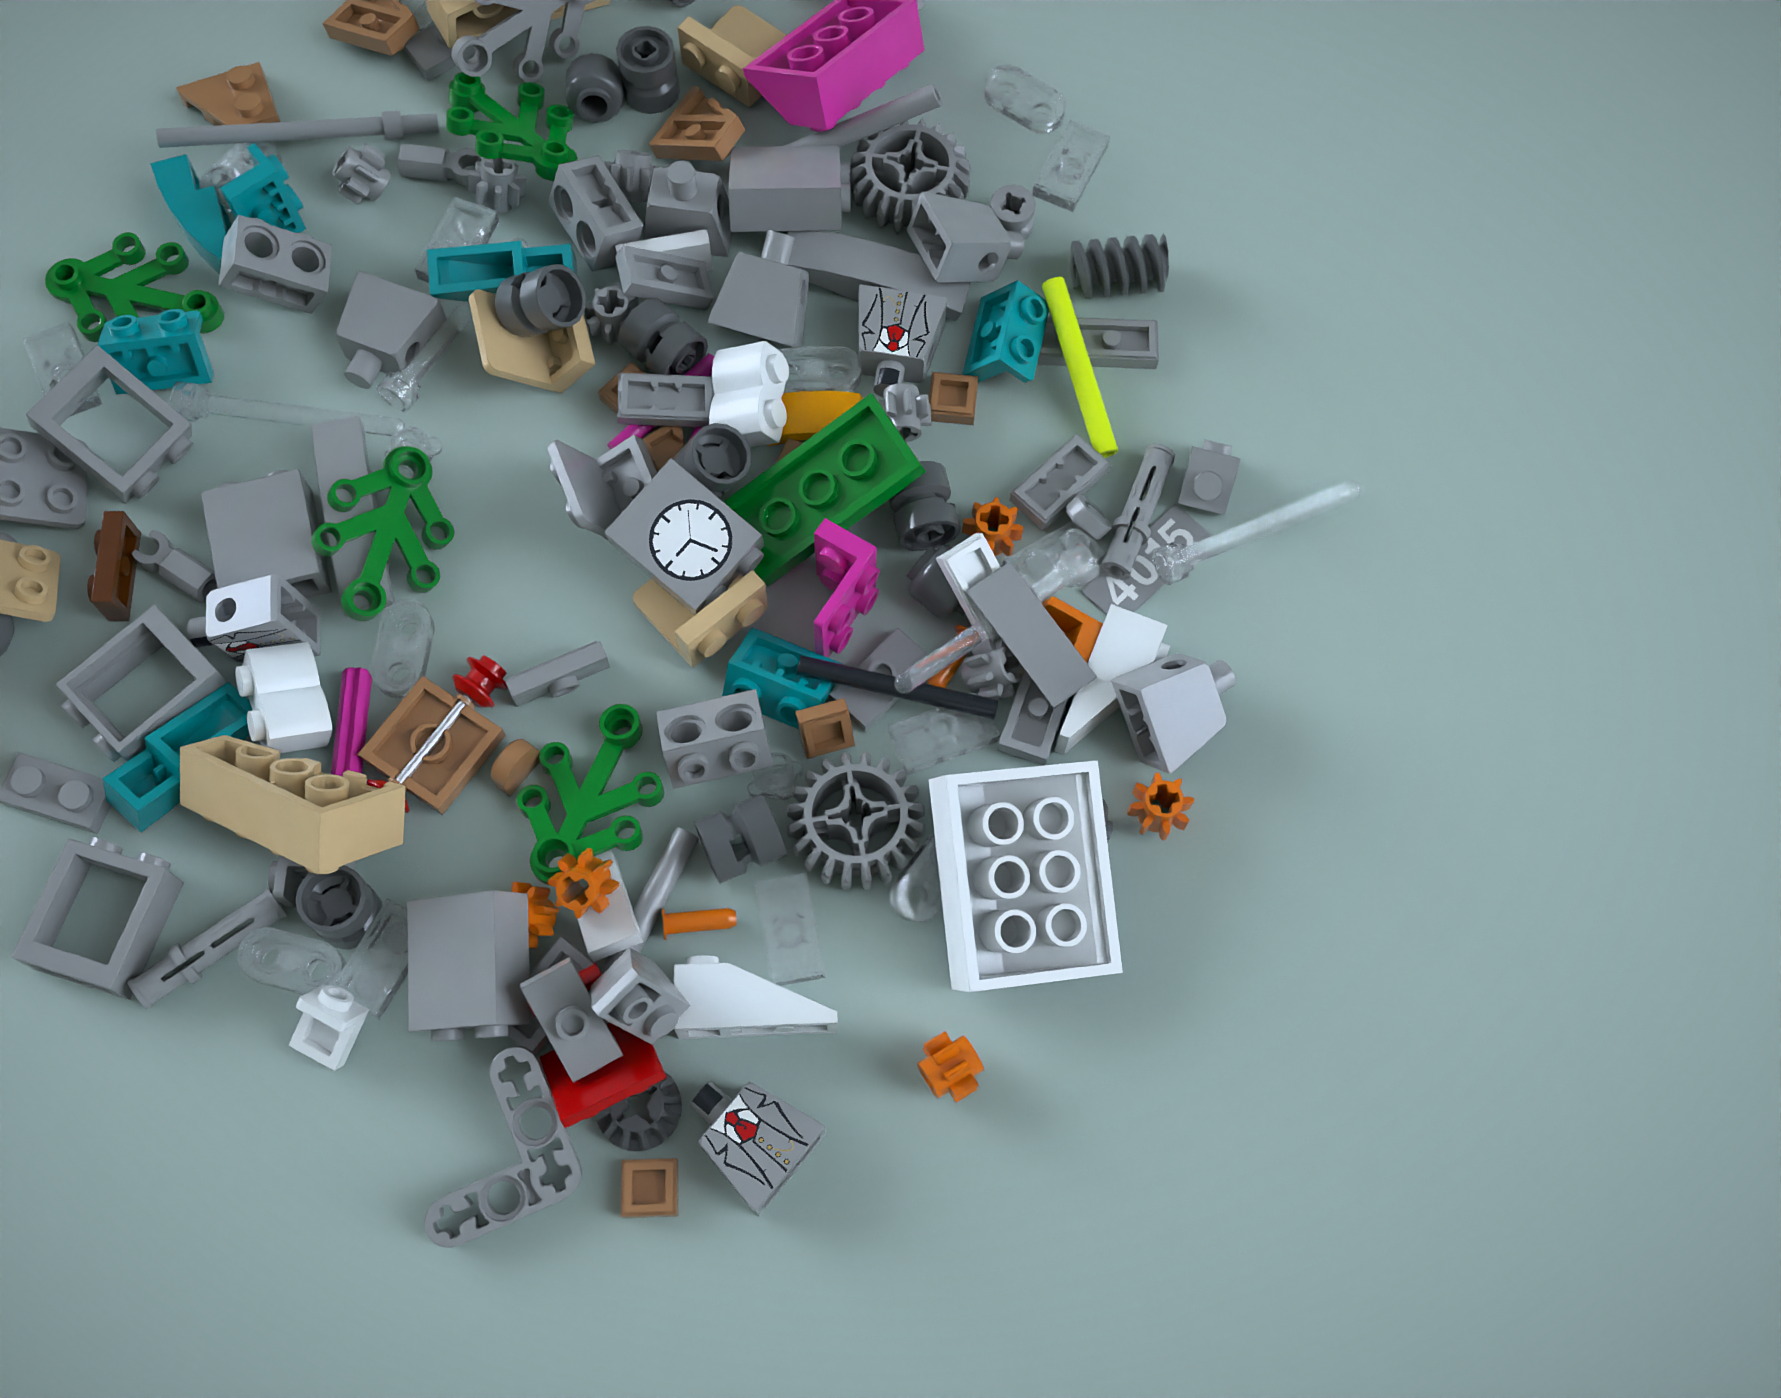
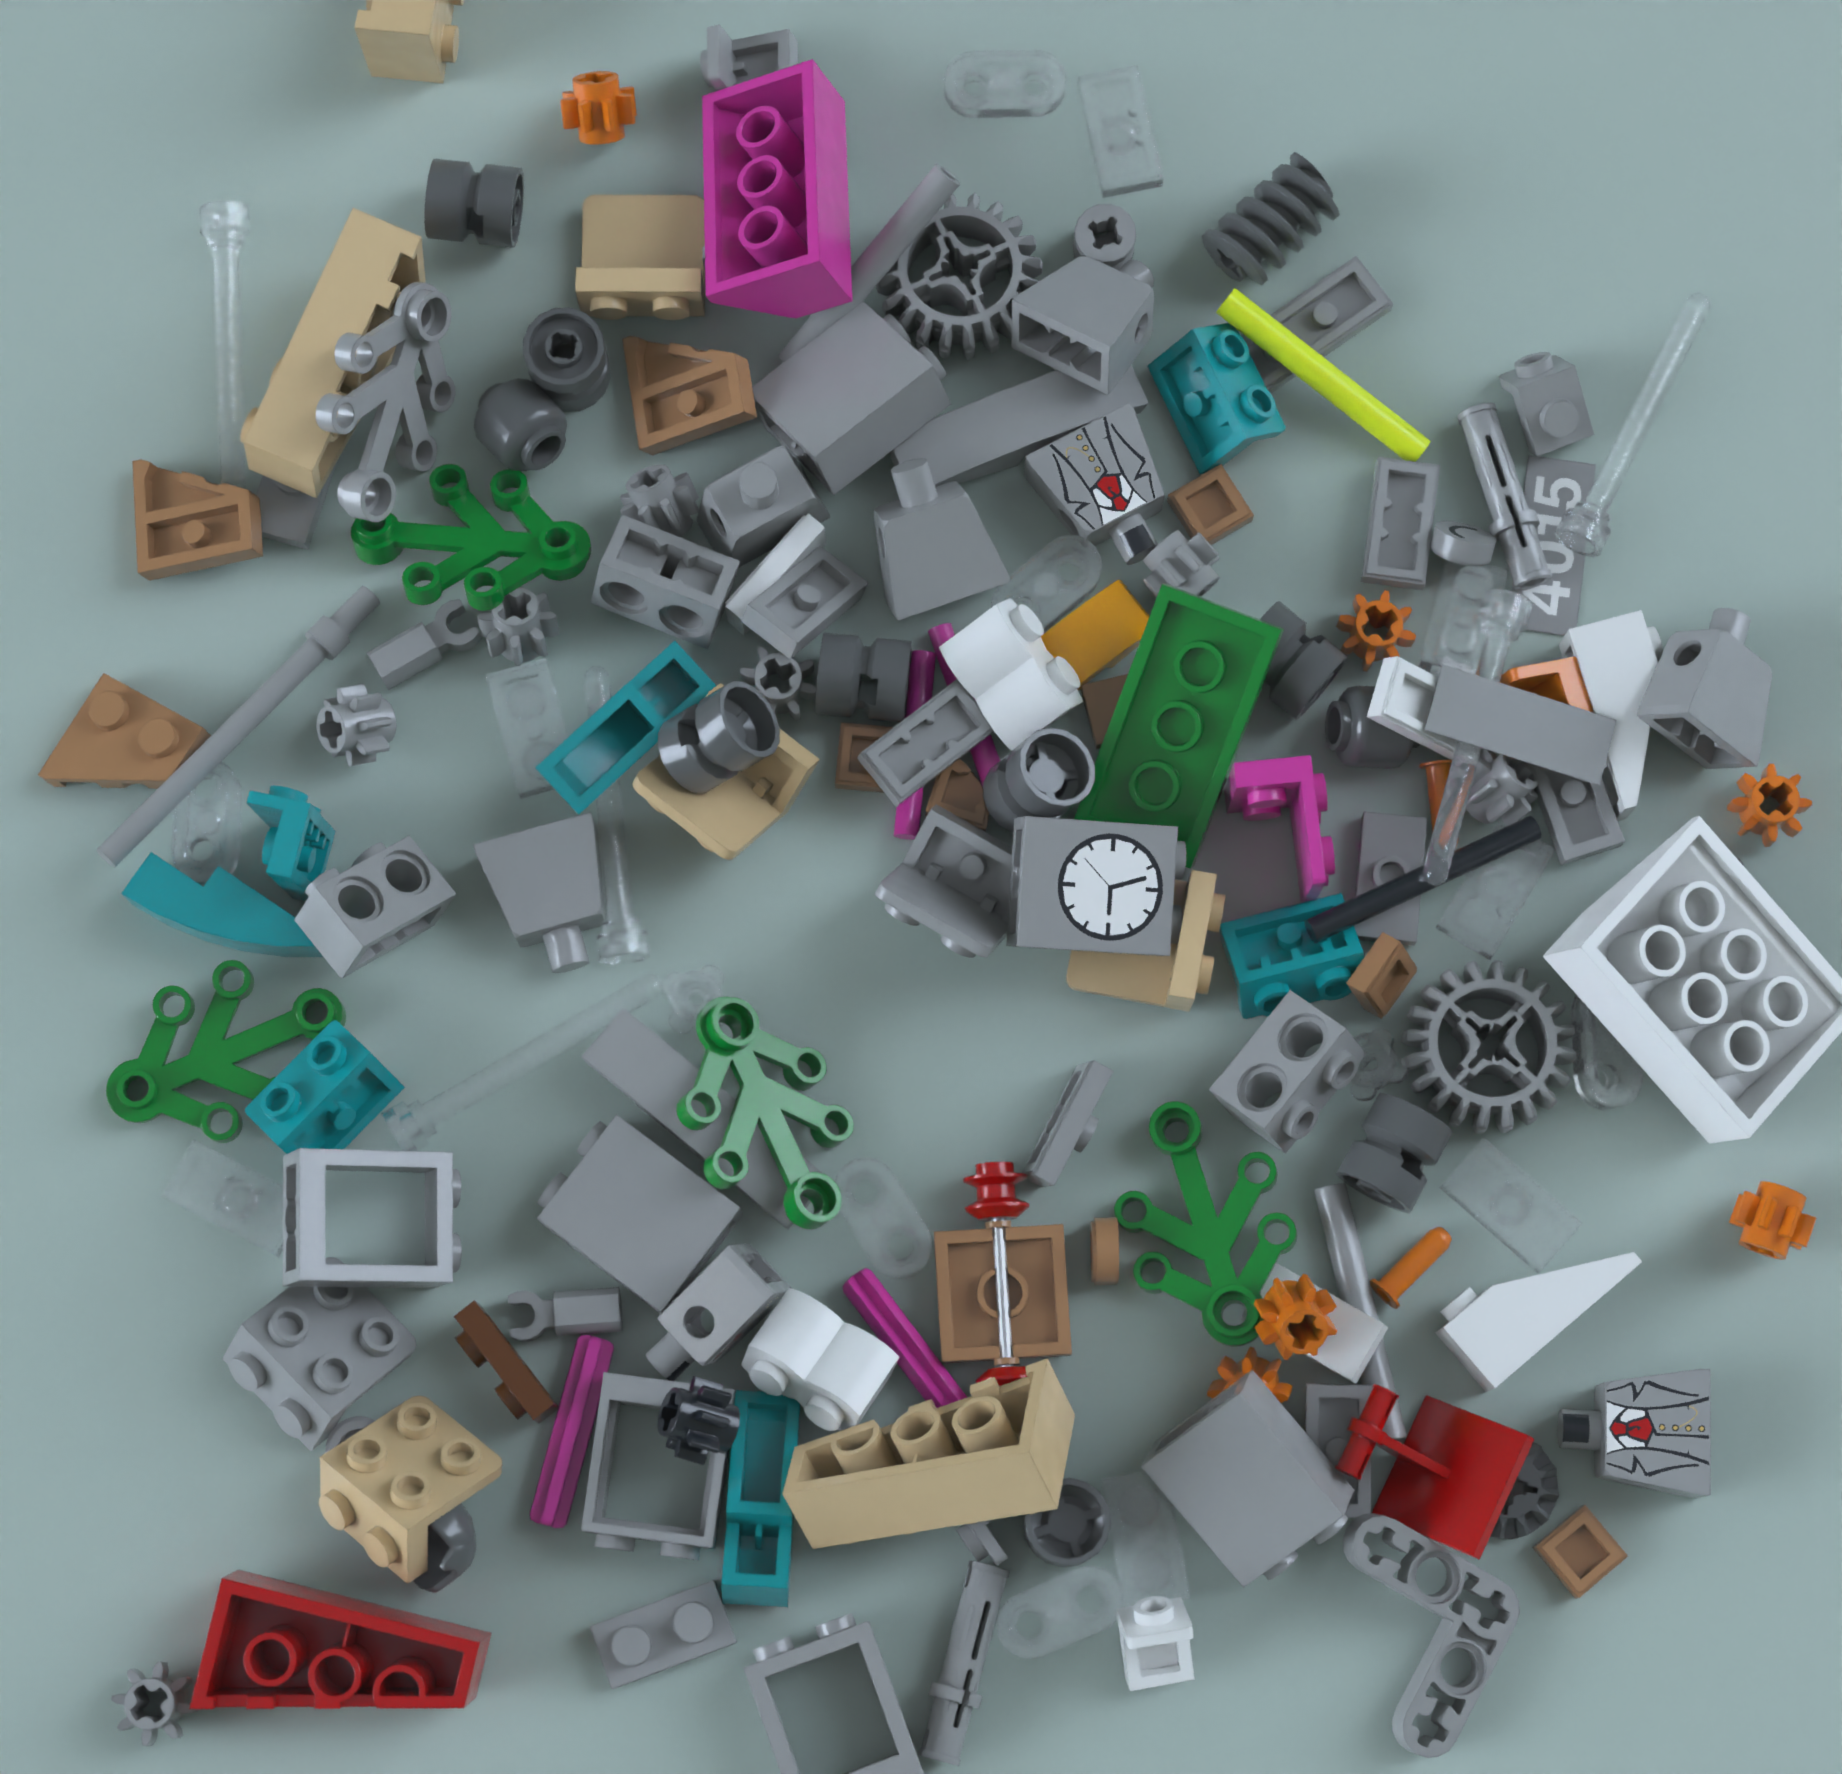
camera: 35 degrees left, 10 degrees up
(167, 600) = (571, 1432): none -> dark pink axle
(170, 664) = (698, 1420): none -> black gear
(569, 1021) = (1403, 1455): light grey plate -> none
(638, 997) = (1447, 1385): light grey slope -> none

